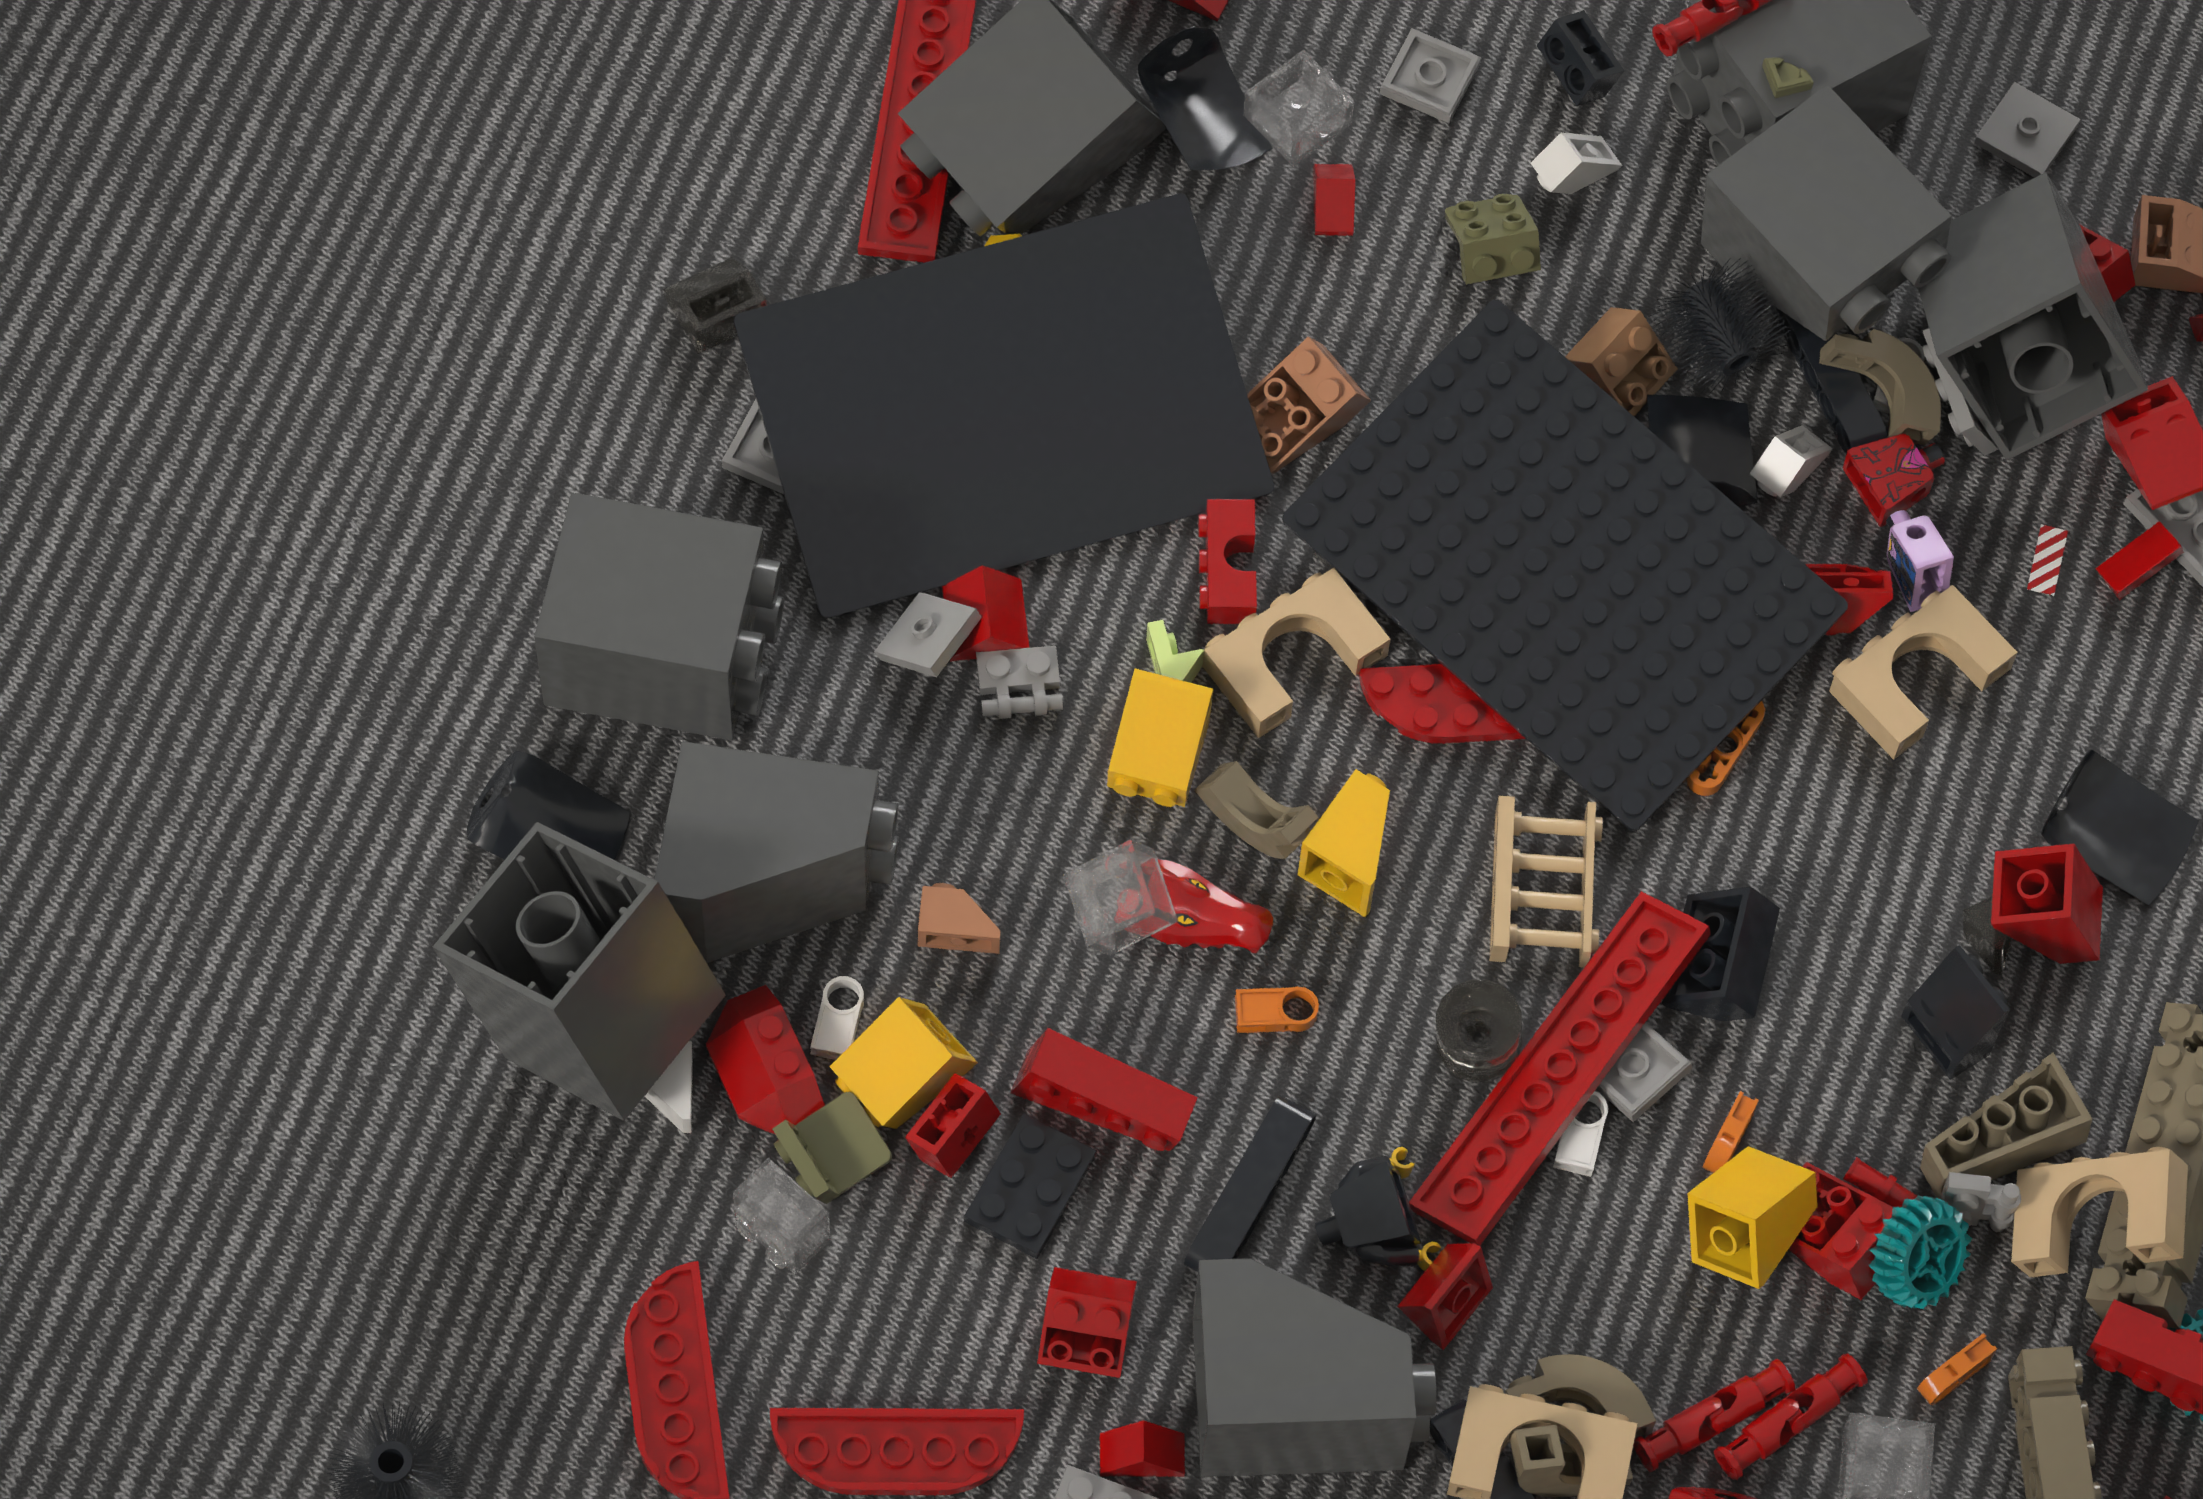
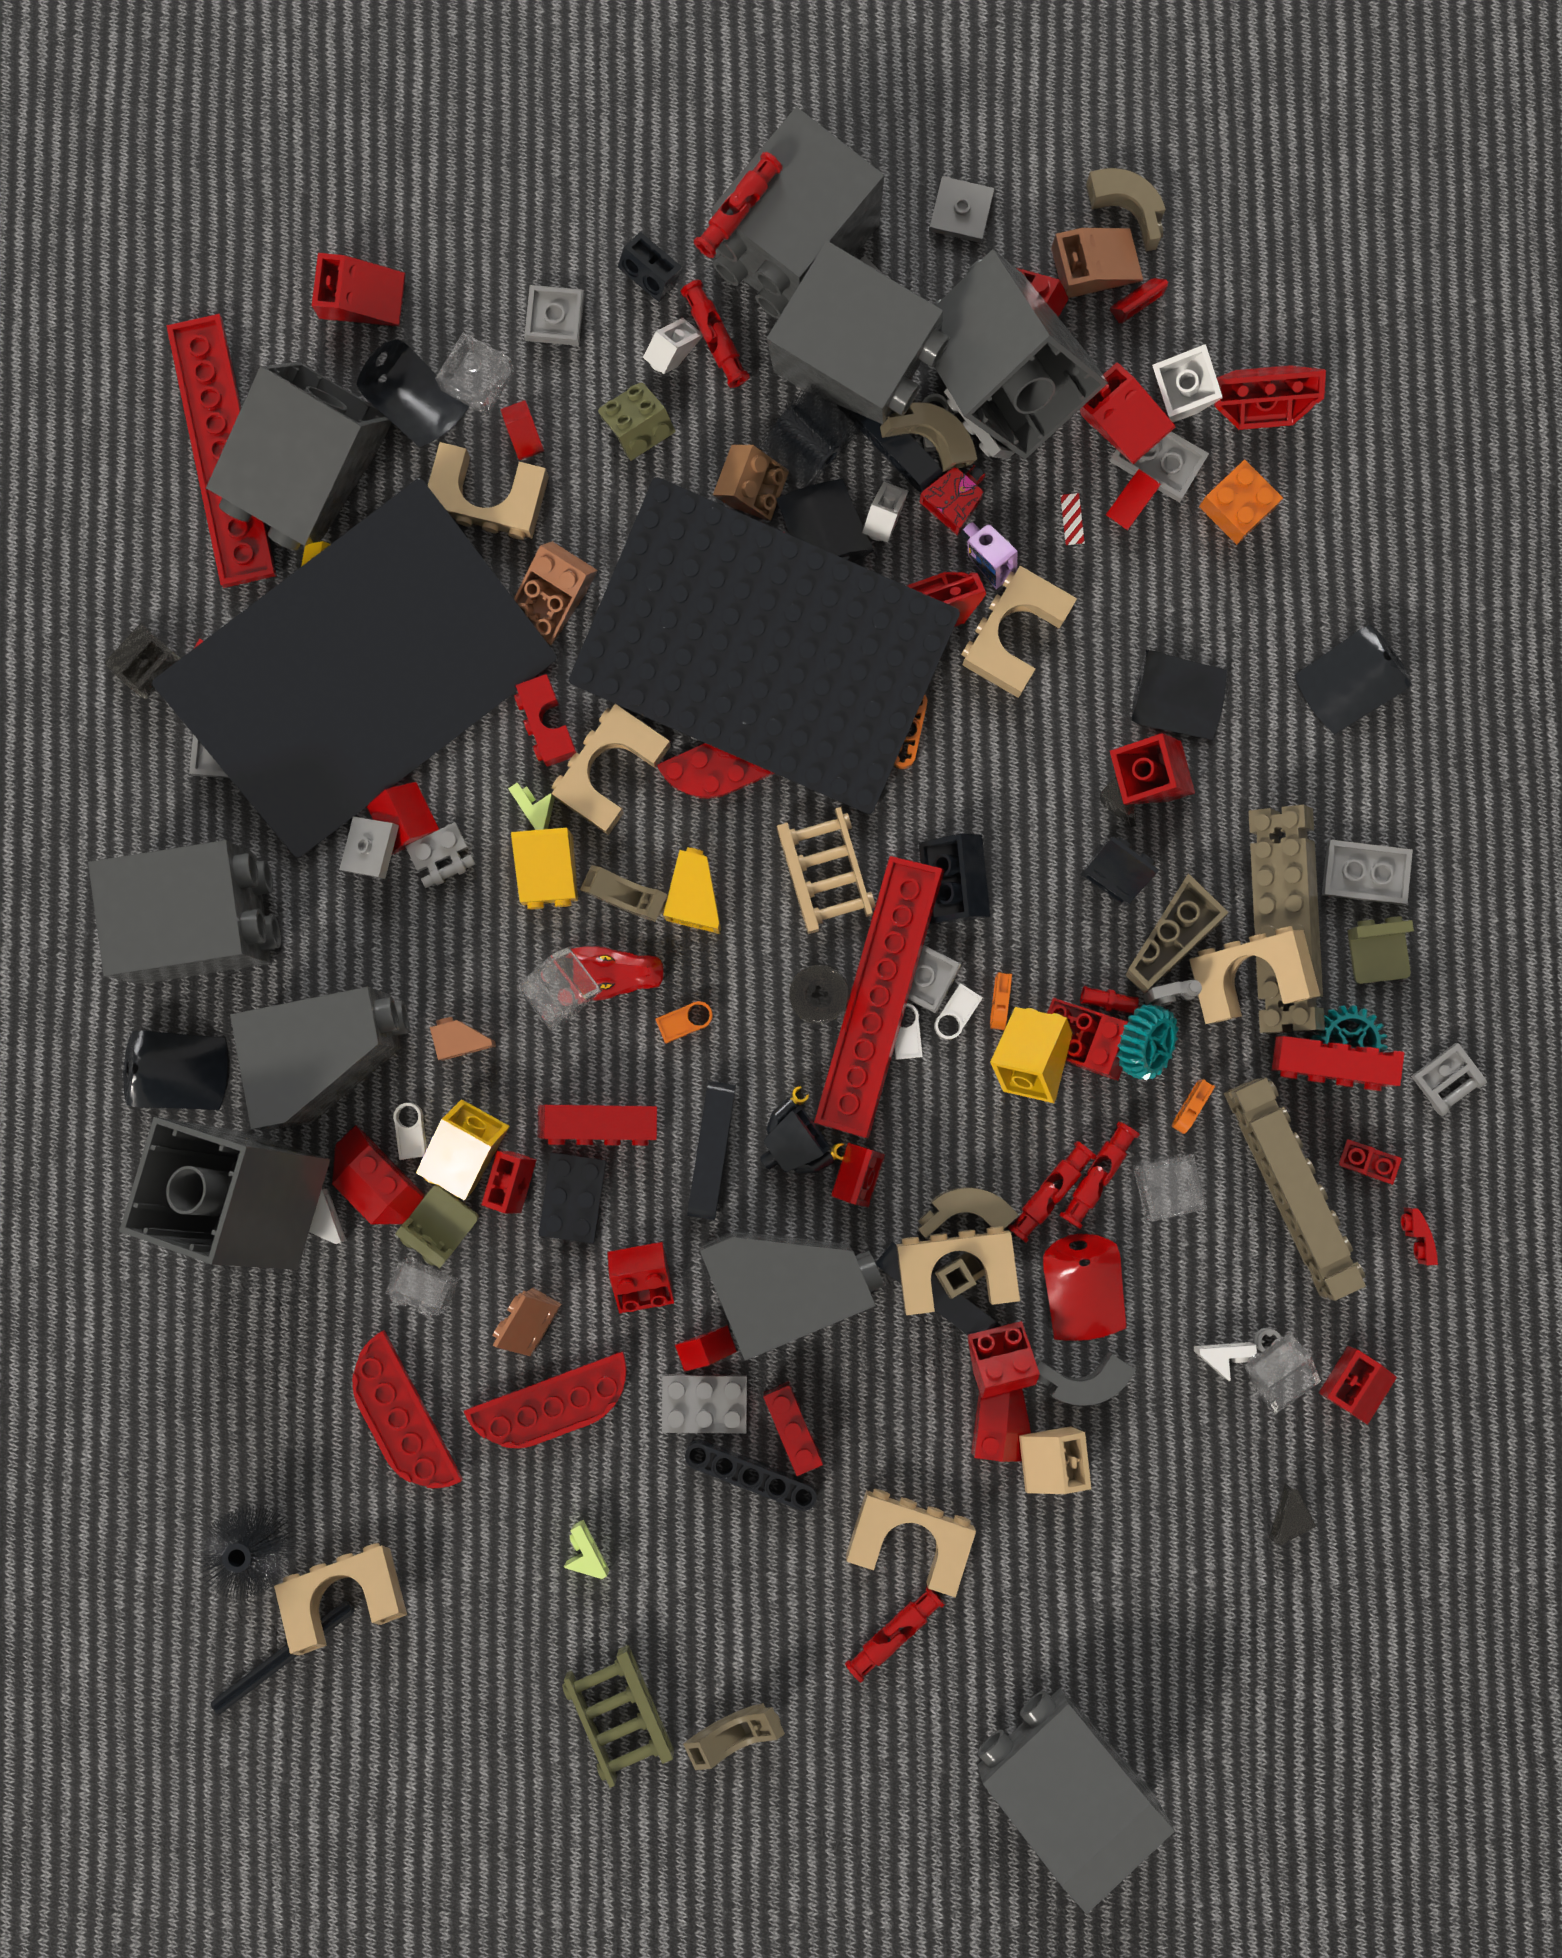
camera: 15 degrees left, 20 degrees up
(908, 1310) = (527, 1323): none -> nougat slope
(1281, 296) = (514, 515): none -> tan arch
(1638, 168) = (716, 335): none -> red piece
(1670, 1126) = (960, 1006): none -> white piece
(1785, 77) = (796, 244): olive tile -> none

